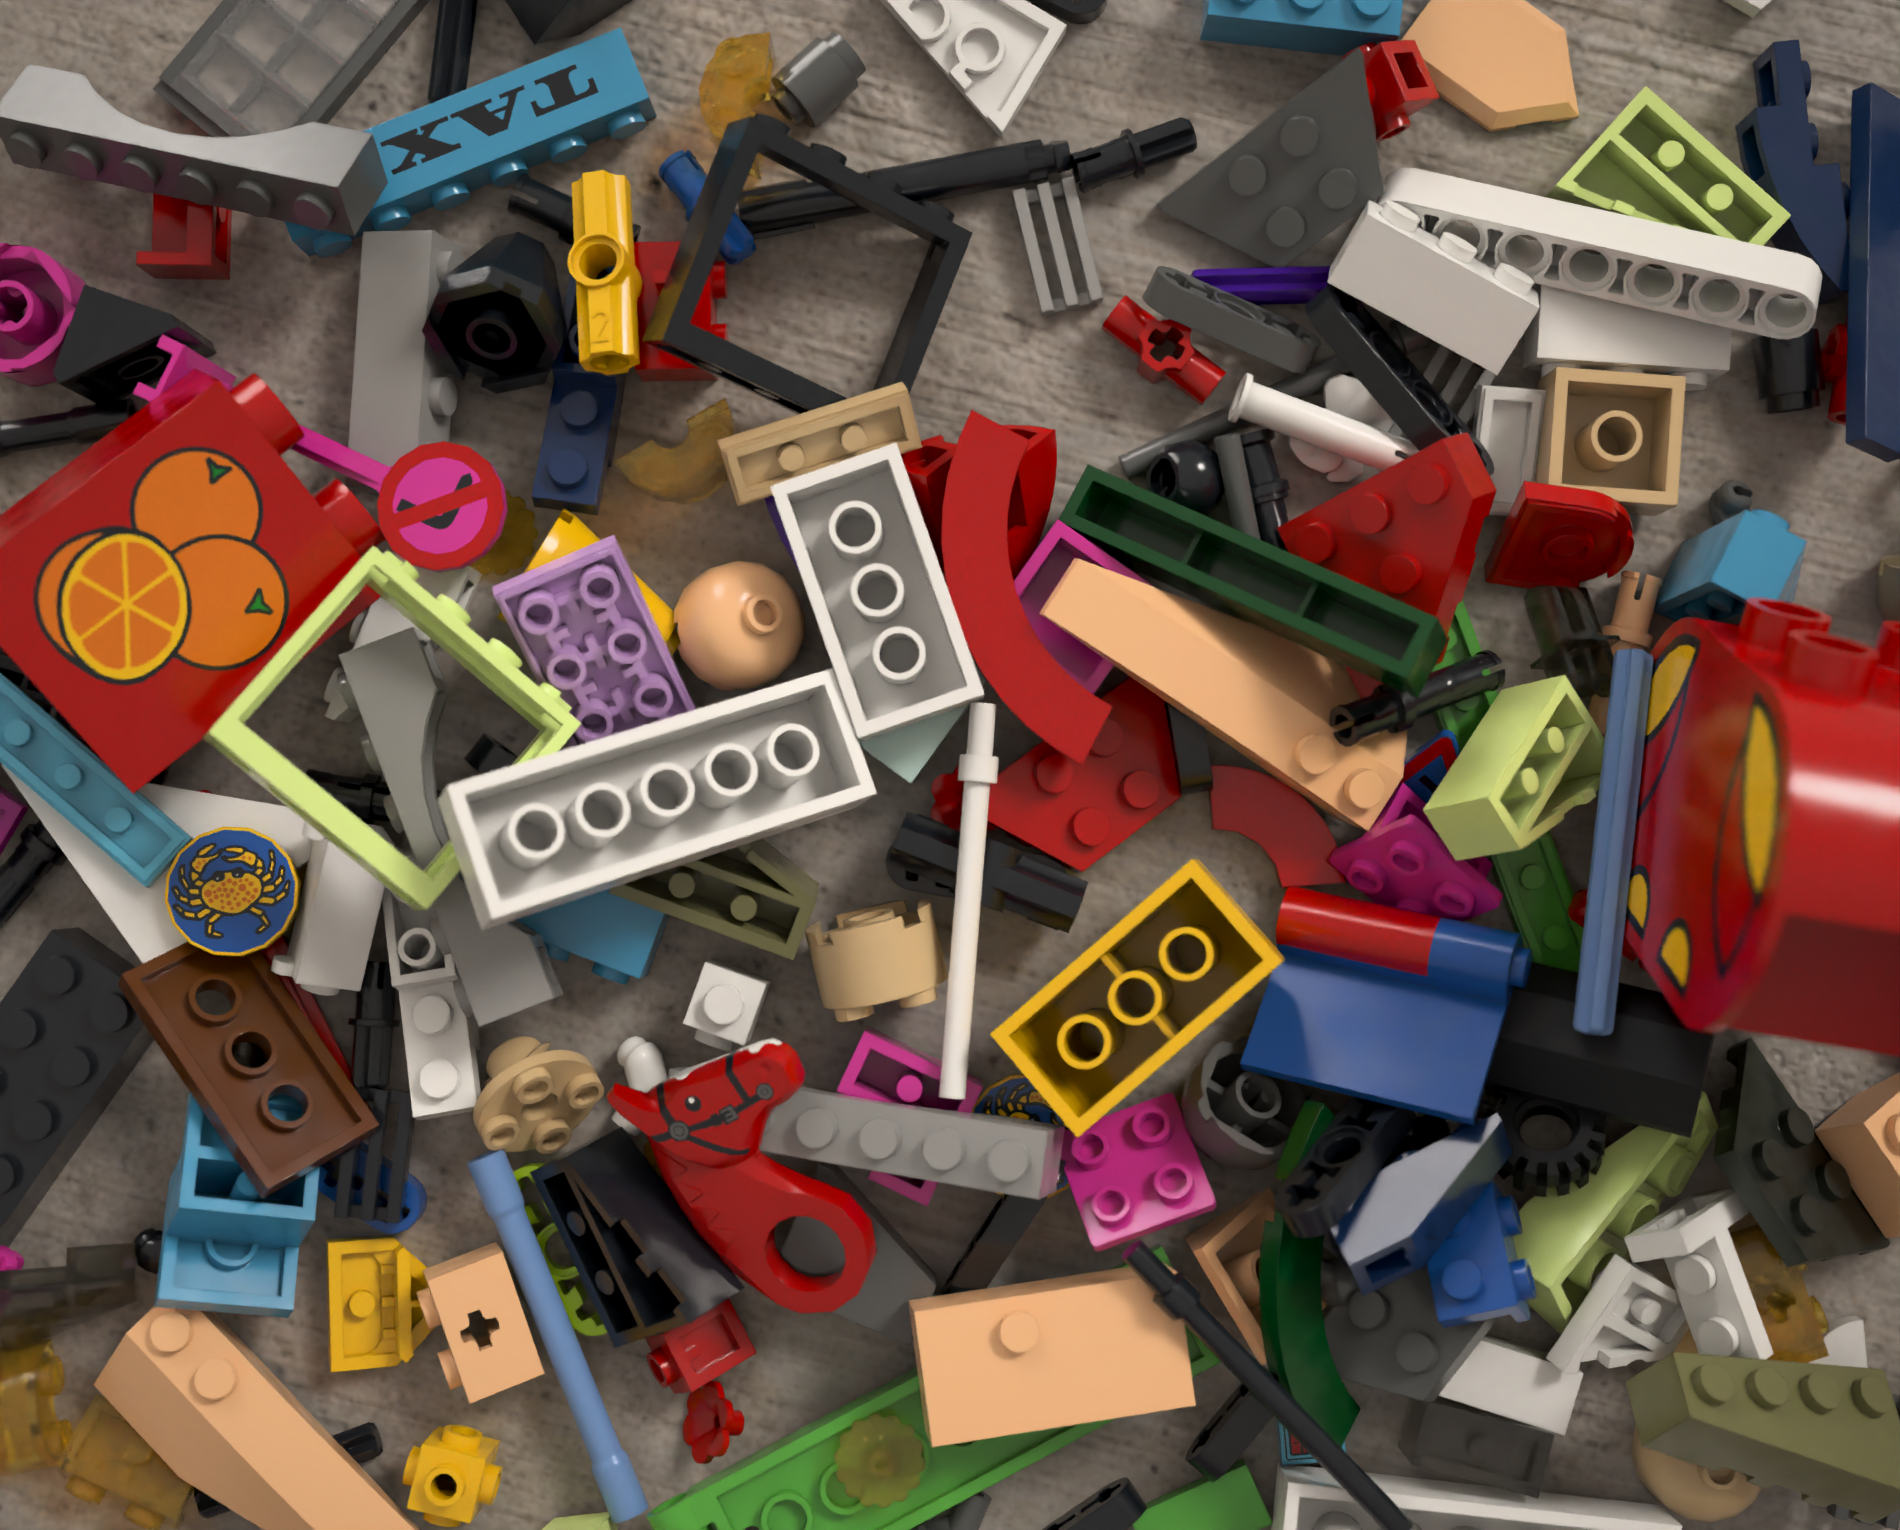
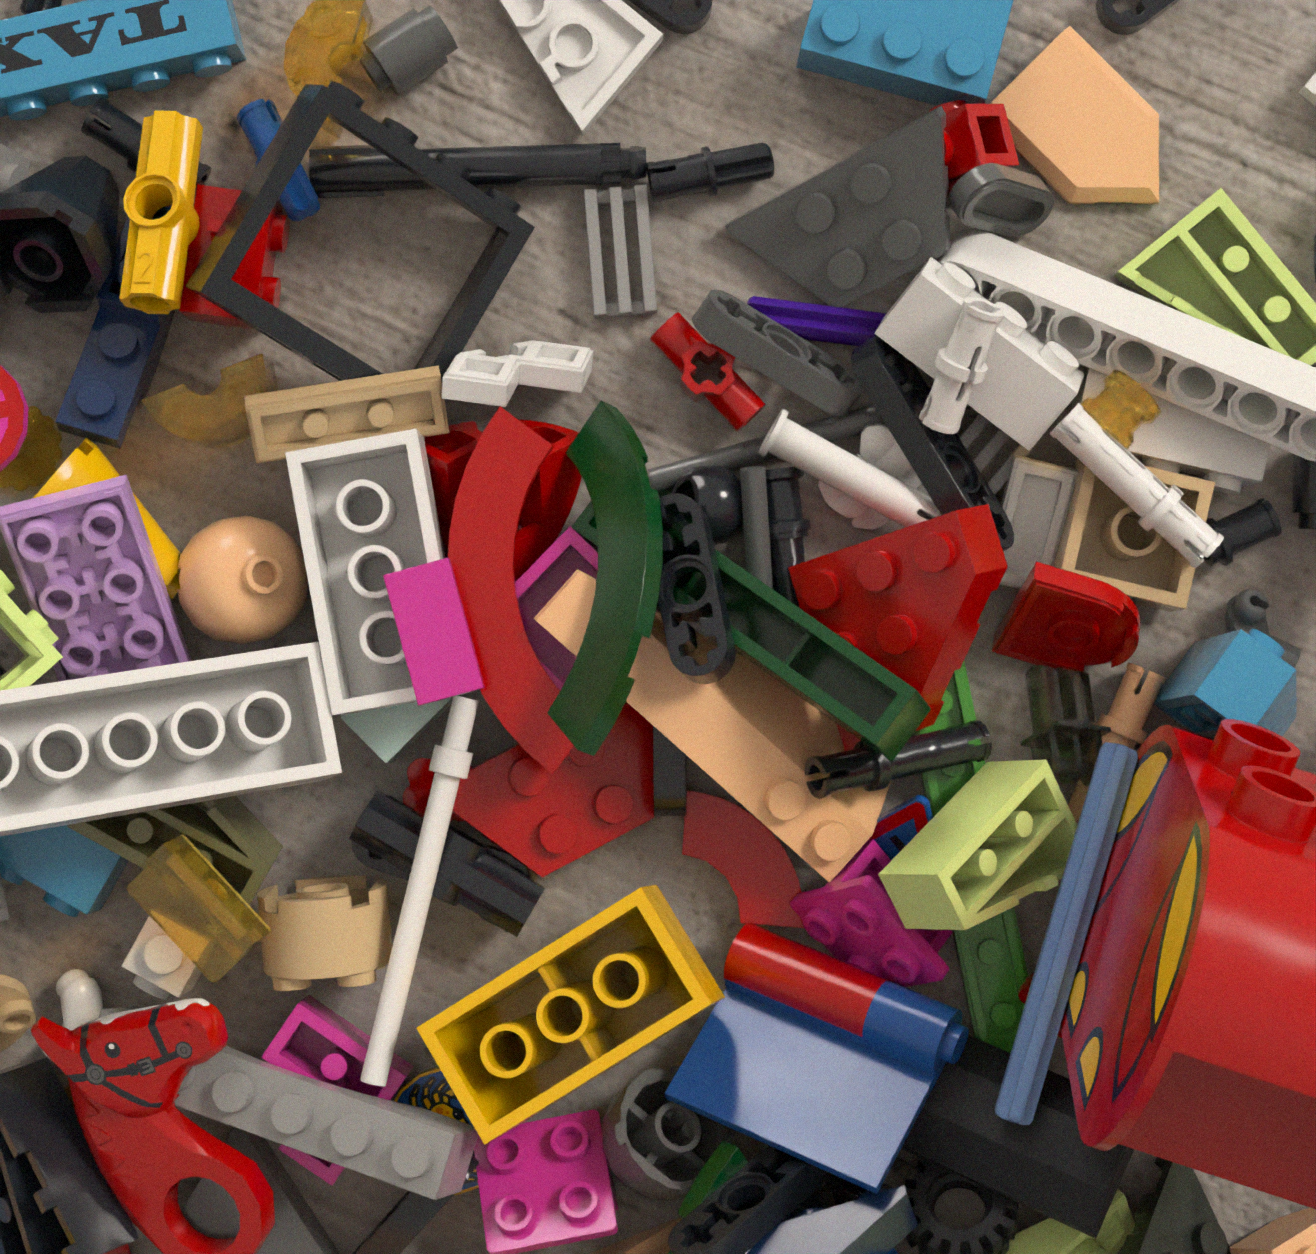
camera: 10 degrees right, 0 degrees up
(751, 953) = (197, 908): none -> clear yellow panel
(947, 638) = (433, 631): none -> dark pink tile
(987, 368) = (530, 363): none -> white tile
(1128, 559) = (626, 581): none -> dark green tile
(1158, 524) = (717, 630): none -> black beam
(1421, 298) = (961, 365): none -> white pin
(1427, 134) = (1001, 200): none -> dark grey tile
(1580, 320) = (1122, 407): none -> clear yellow wheel
(1625, 399) = (1137, 486): none -> white pin
(1713, 425) = (1243, 530): none -> black pin

